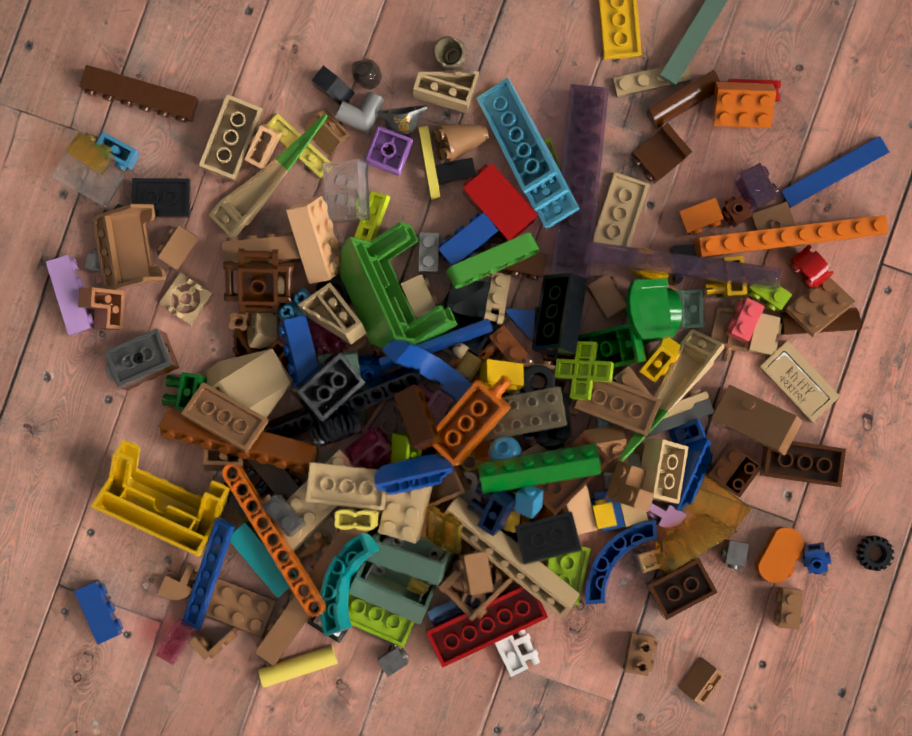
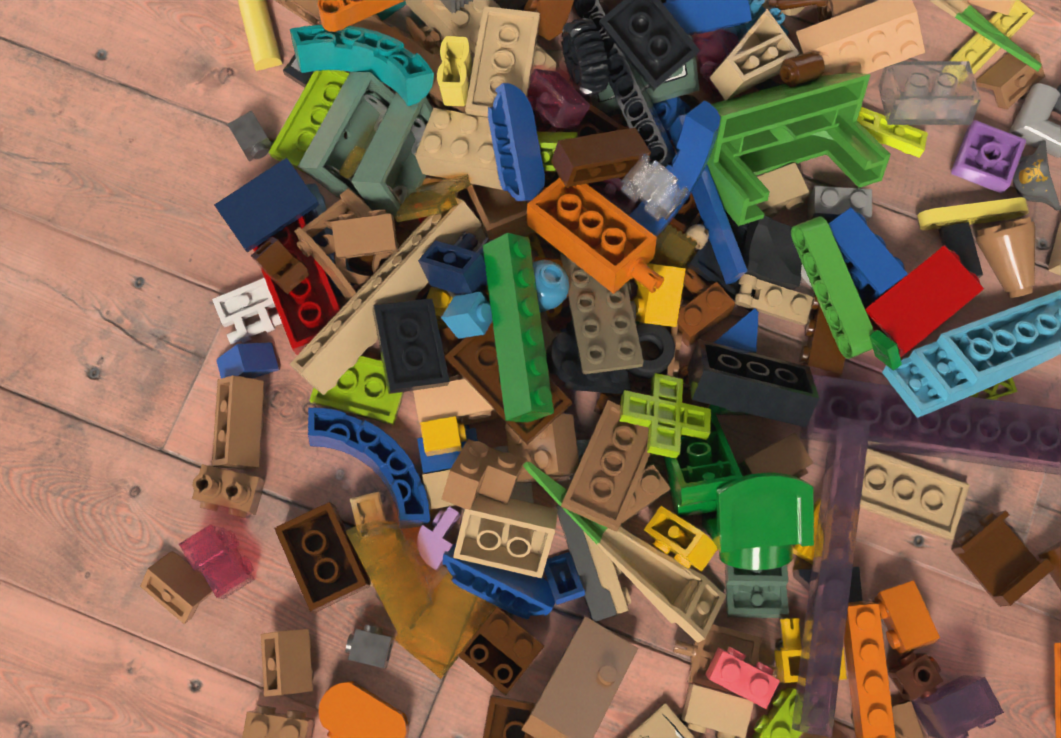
camera: 95 degrees right, 10 degrees down
(343, 281) = (802, 69): none -> reddish brown brick
(442, 382) = (654, 187): none -> clear brick
(449, 643) = (266, 205): none -> dark blue tile
(494, 629) = (280, 264): none -> reddish brown brick
(535, 228) = (885, 350): none -> green tile
(552, 649) = (248, 360): none -> blue slope
(596, 651) = (238, 423): none -> medium nougat brick
(686, 654) = (216, 556): none -> clear pink brick
(747, 605) = (286, 662): none -> medium nougat brick

